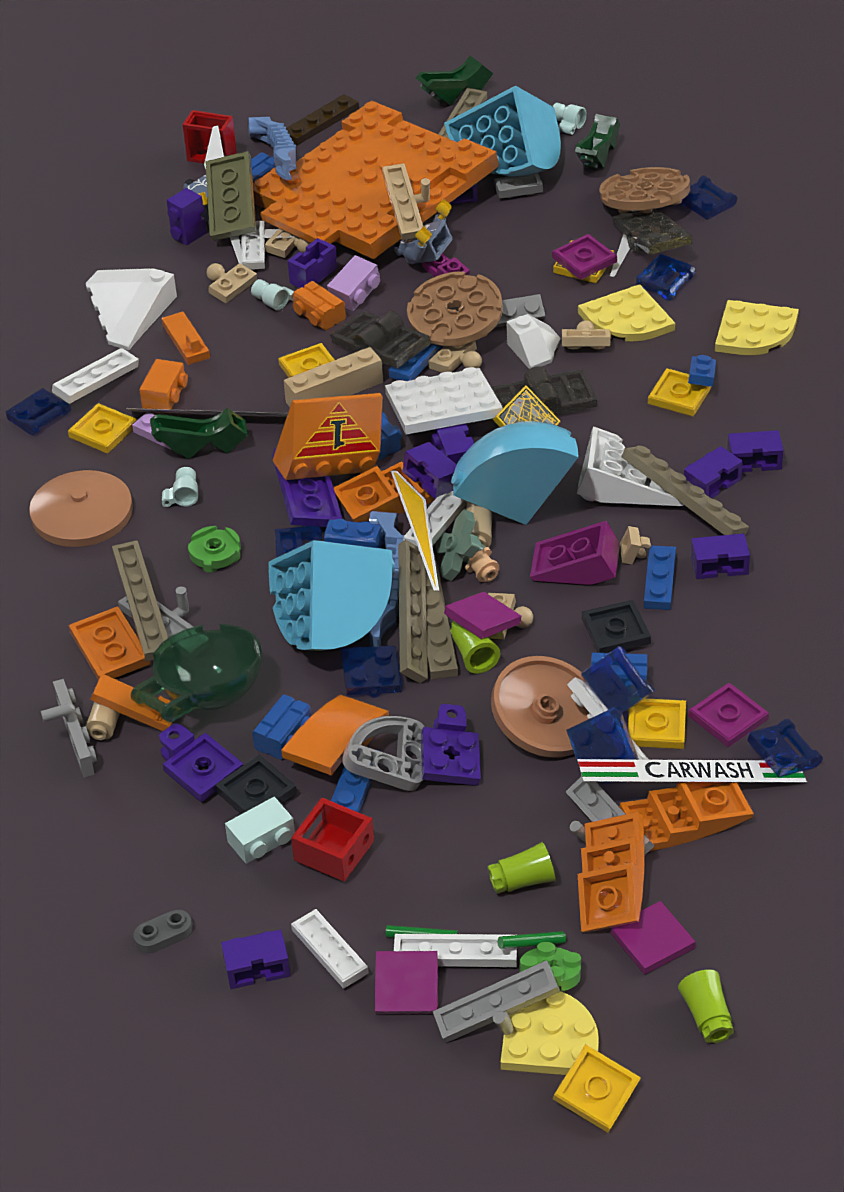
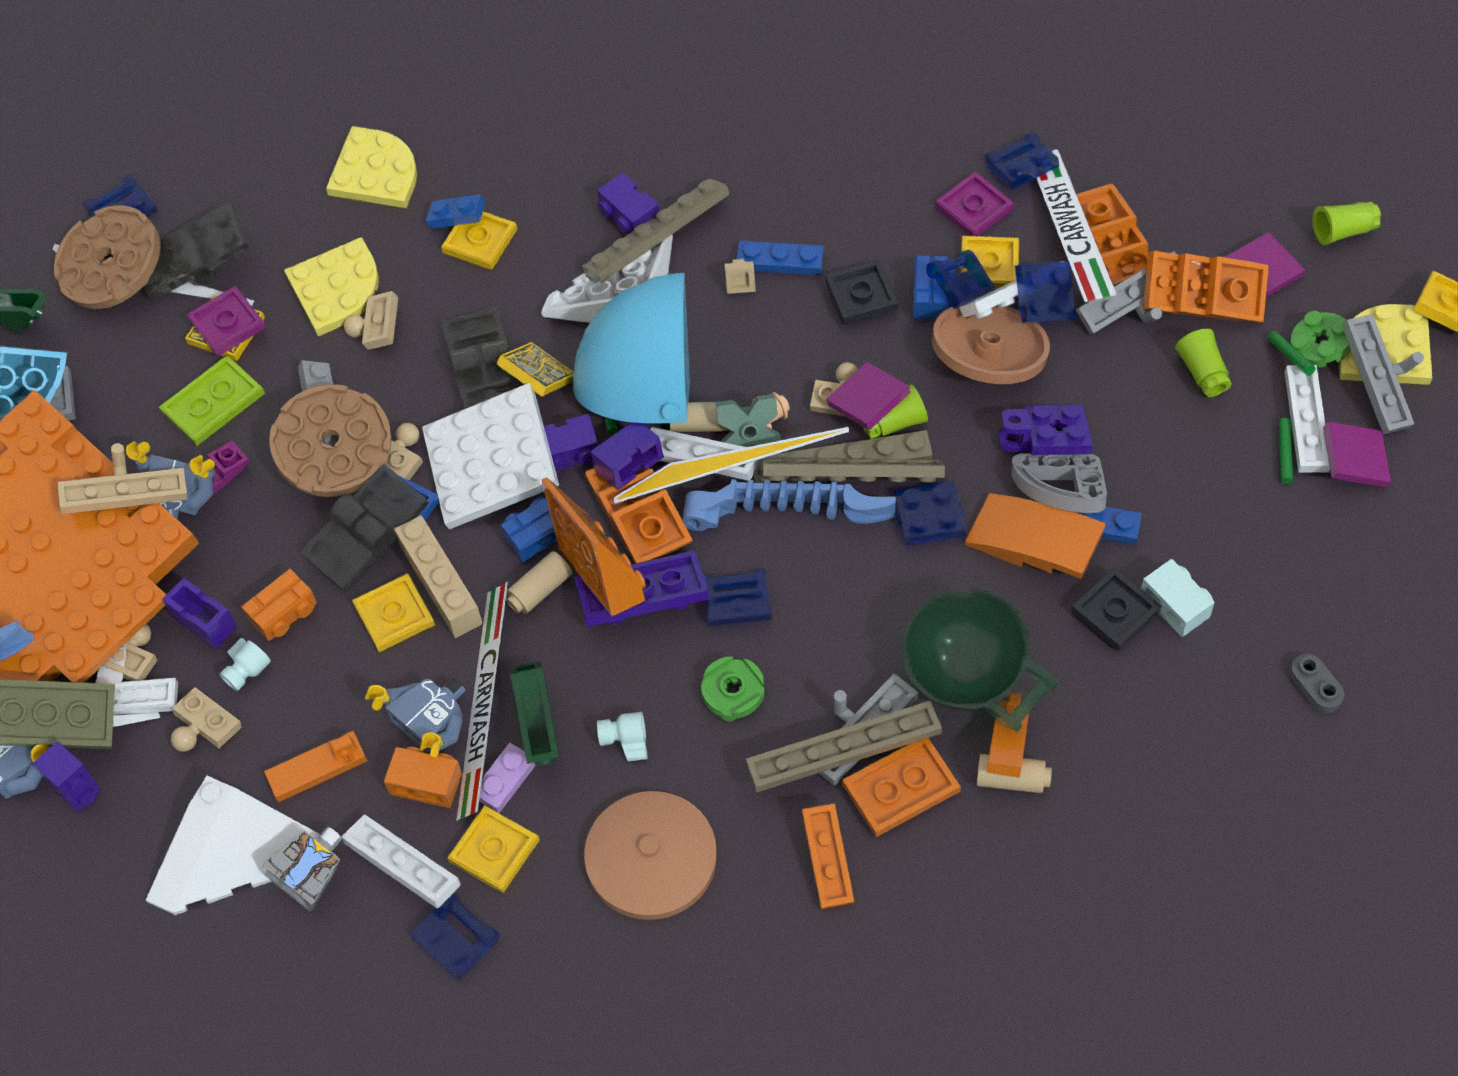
camera: 90 degrees left, 15 degrees up
(55, 598) = (827, 856): none -> orange hinge
(72, 719) = (1048, 802): light grey plate -> none
(99, 331) = (304, 866): none -> torso
(186, 754) = (1077, 679): dark purple plate -> none
(213, 382) = (423, 712): none -> sand blue torso
(255, 958) = (1347, 591): dark purple brick -> none
(280, 725) = (1027, 587): blue brick -> none
(329, 593) = (845, 544): medium azure brick -> none
(329, 948) = (1320, 525): white plate -> none
(336, 842) = (1191, 524): red piece -> none
(353, 533) = (730, 536): blue brick -> none
(355, 282) = (243, 562): lavender brick -> none
(514, 262) = (211, 400): none -> lime tile
(532, 340) = (381, 374): white slope -> none
(577, 556) = (757, 326): magenta slope -> none
(660, 271) = (269, 253): clear blue plate -> none
(720, 555) = (756, 202): dark purple brick -> none
(757, 450) = (592, 167): dark purple brick -> none

